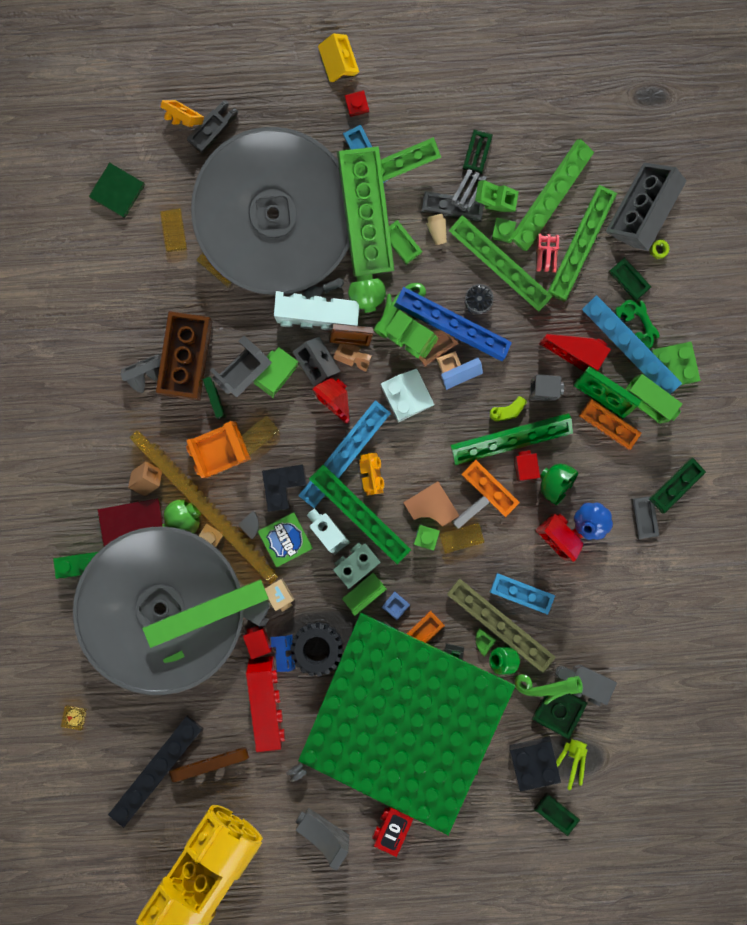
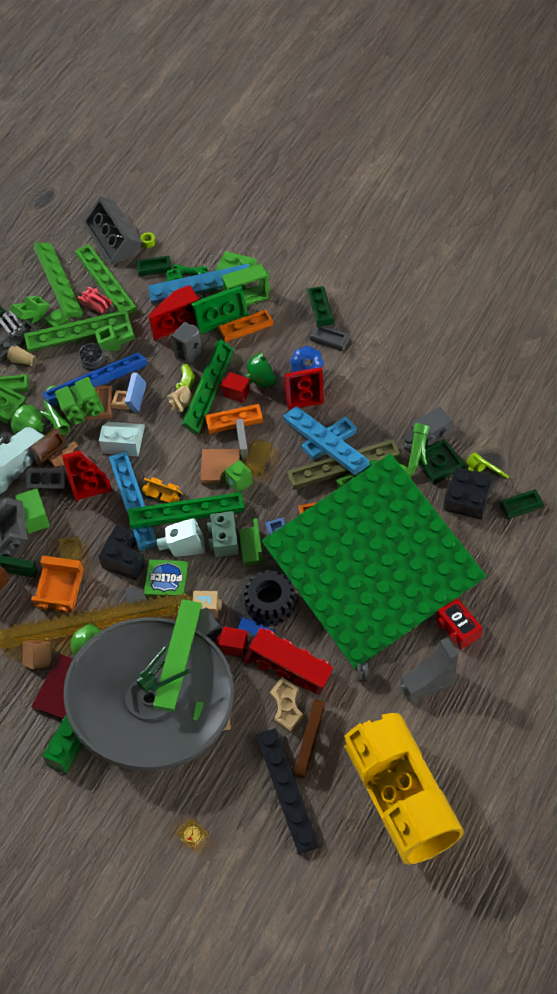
camera: 50 degrees left, 30 degrees down
(161, 609) = (147, 679): none -> dark green plant
(222, 729) = (288, 714): none -> tan tile
(480, 422) = (180, 399): none -> tan bracket
(512, 596) = (326, 440): none -> dark azure plate
(514, 307) = (112, 338): none -> bright green brick

